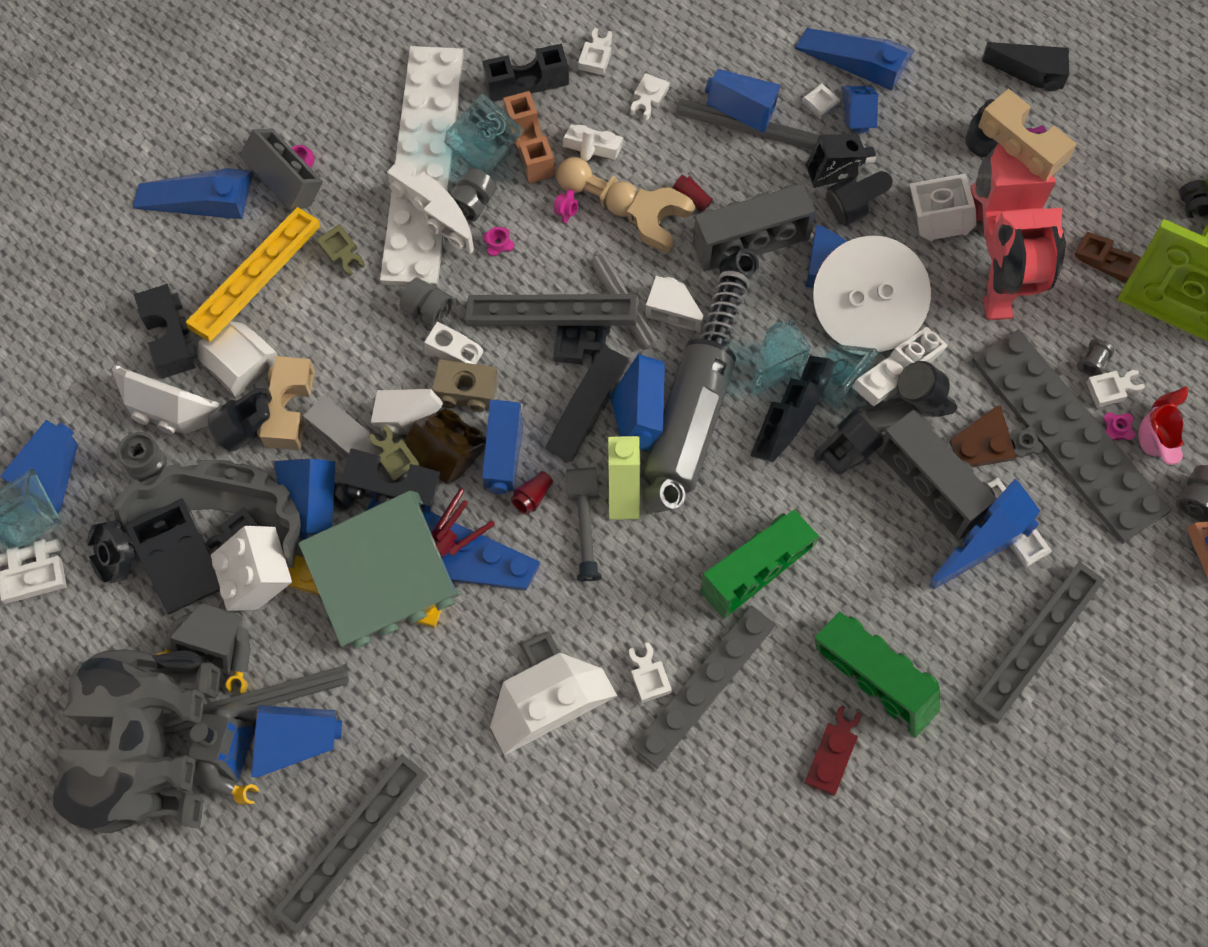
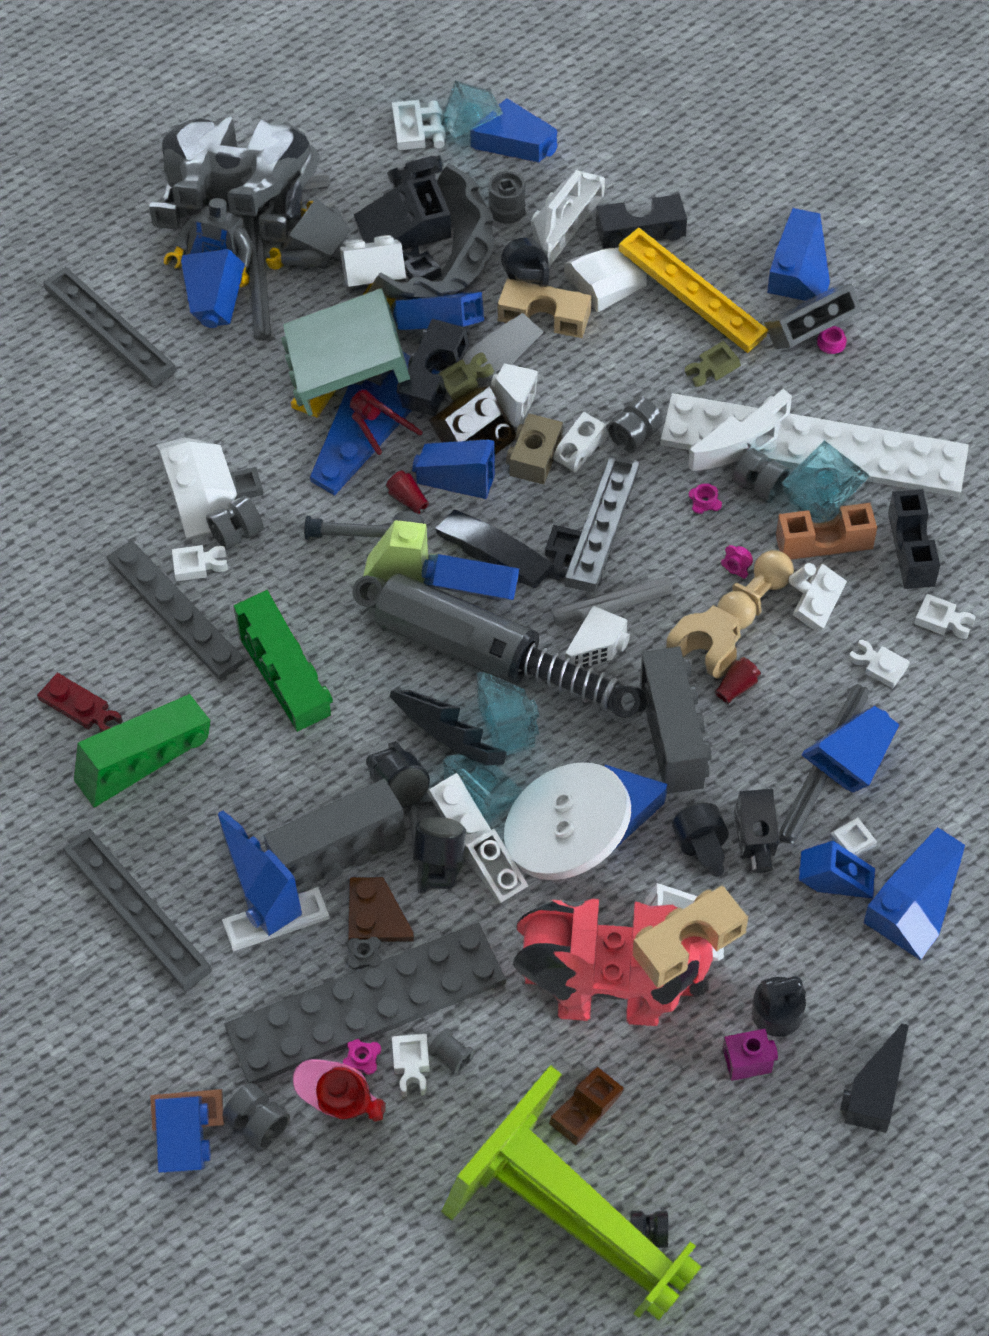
camera: 100 degrees right, 10 degrees down
(599, 644) = (243, 516): none -> dark grey wheel

